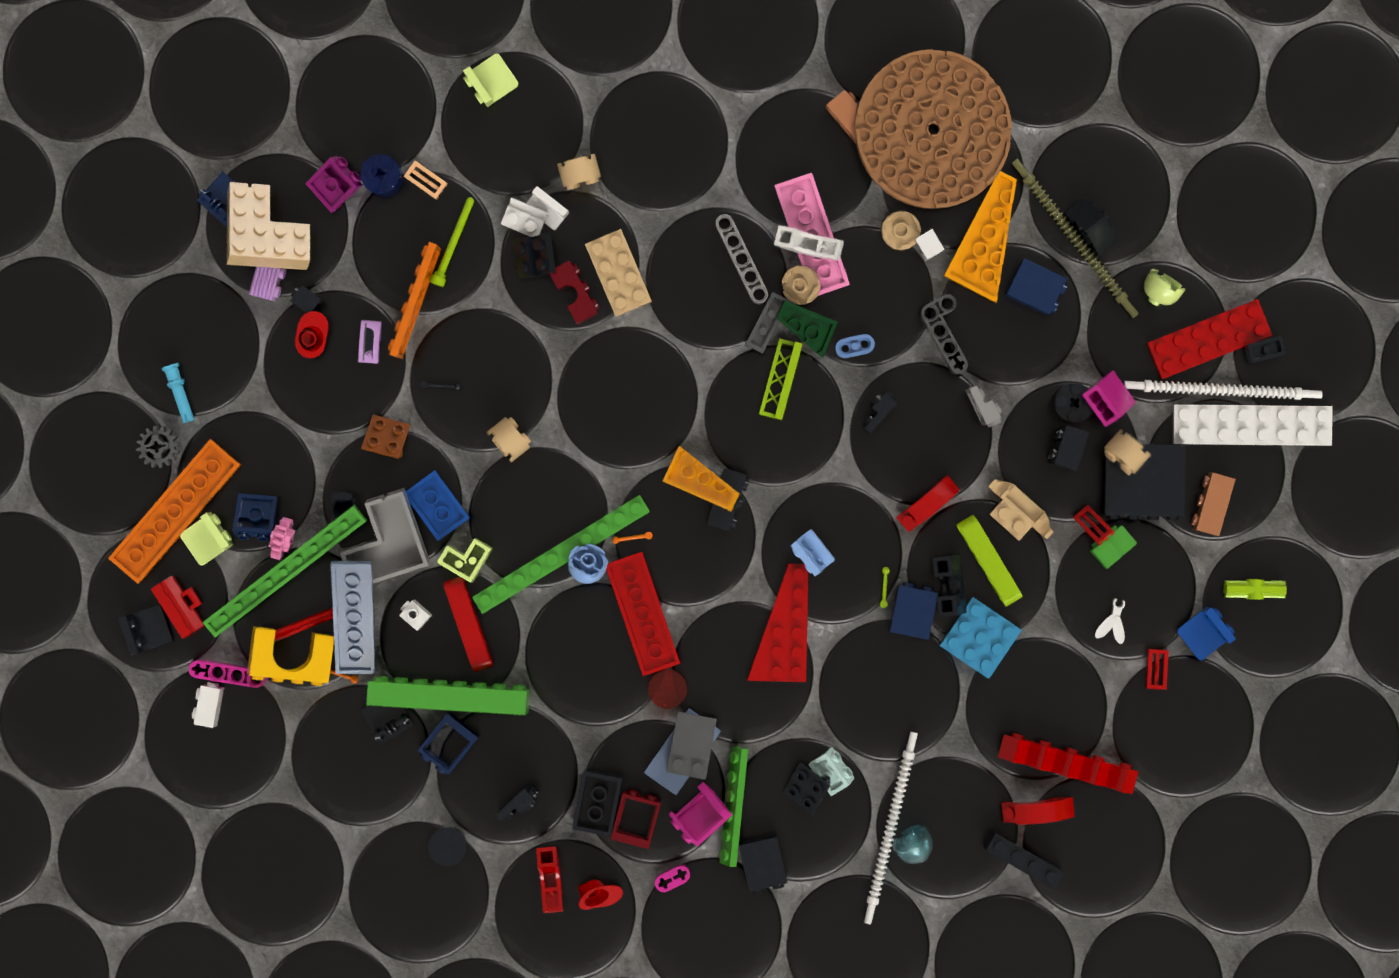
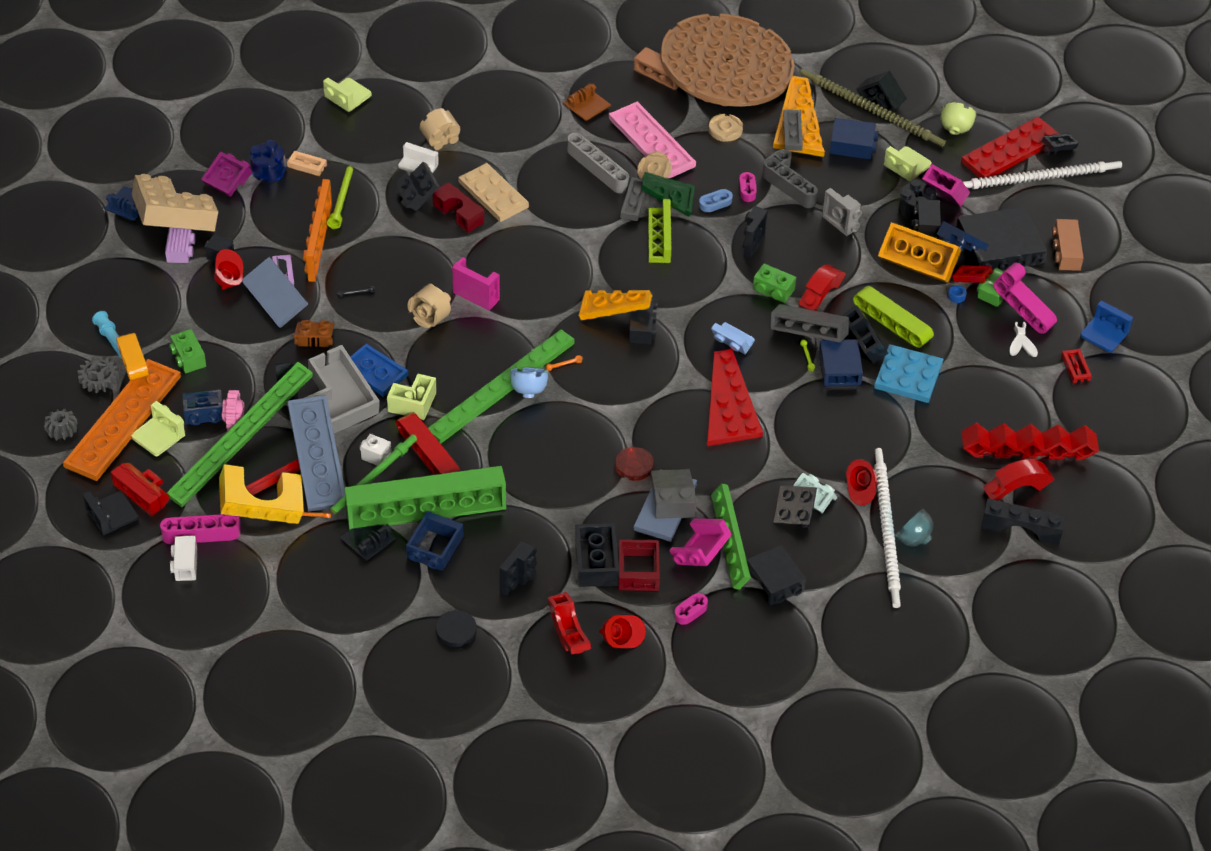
camera: 10 degrees left, 40 degrees down
(112, 498) = (60, 424): none -> dark grey gear
(192, 440) = (132, 356): none -> light orange beam
(251, 436) = (187, 351): none -> bright green brick
(353, 376) = (274, 292): none -> sand blue tile
(437, 629) = (399, 450): none -> bright green bar
(524, 218) = (396, 167): white plate -> none
(572, 436) = (475, 287): none -> dark pink panel
(642, 614) = (592, 411): red plate -> none
(755, 157) = (586, 102): none -> dark orange hinge
(808, 244) = (648, 137): white arch -> none
(879, 485) = (769, 282): none -> bright green brick
(881, 774) = (861, 482): none -> red piece
(892, 329) = (744, 187): none -> dark pink beam
(896, 559) = (809, 323): none -> dark grey brick
(929, 244) = (756, 126): white panel -> none
(970, 267) = (792, 130): none -> dark grey plate
(1018, 512) = (902, 280): tan plate -> none
(1045, 488) = (902, 248): none -> light orange brick
(1069, 540) = (956, 294): none -> blue tile
(1084, 337) = (906, 162): none -> yellowish green bracket
(1095, 488) = (960, 238): none -> dark blue plate
(1126, 452) = (977, 207): tan brick -> none
(1127, 574) = (1023, 299): none -> dark pink beam
(1252, 425) = (1076, 193): white plate -> none
(1254, 589) = (1132, 293): lime piece -> none

